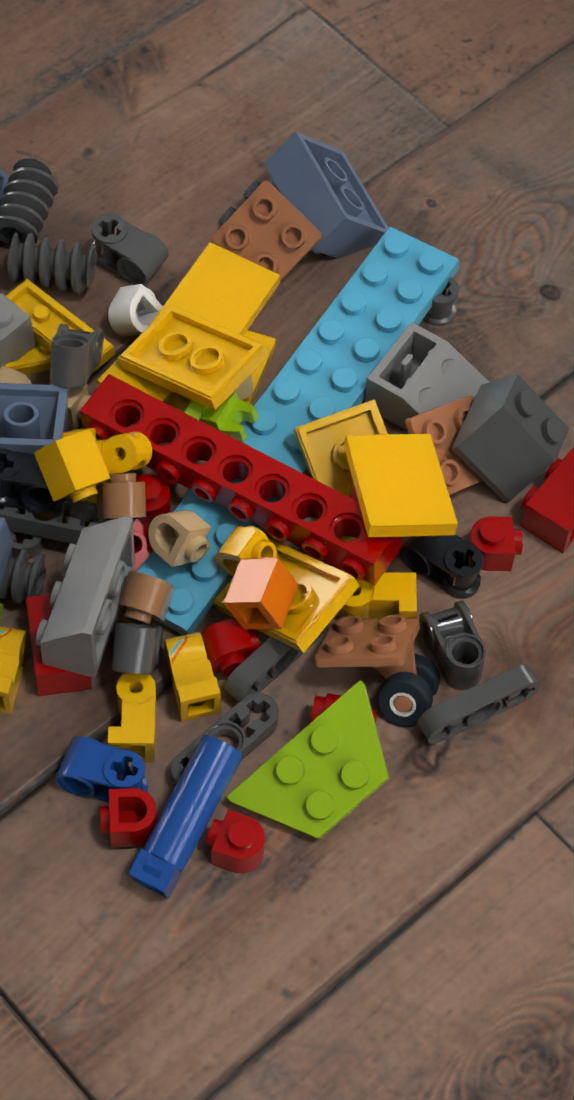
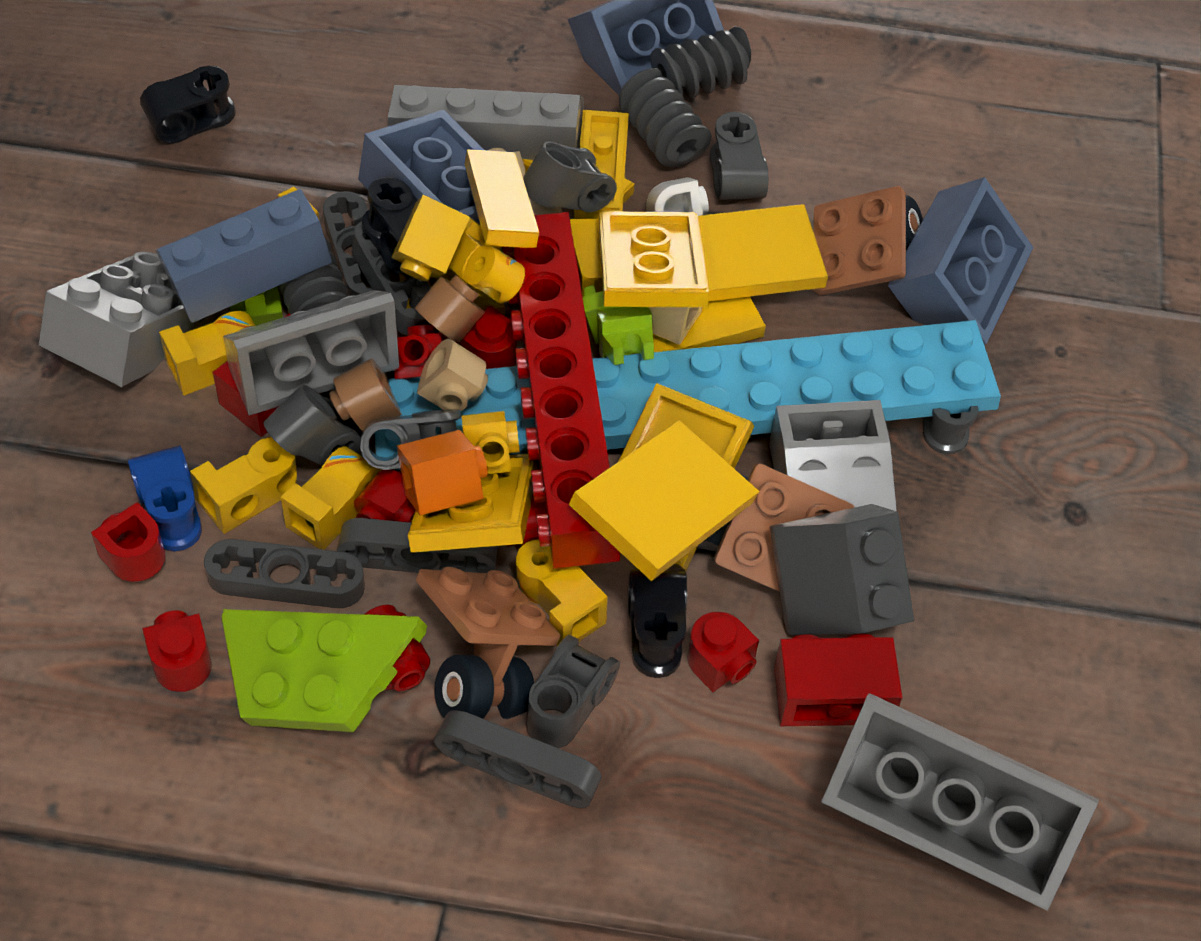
camera: 50 degrees right, 5 degrees down
(74, 401) = (501, 199): none -> tile
(185, 816) = (165, 583): blue piece -> none
(205, 592) = (409, 429): none -> dark grey piece

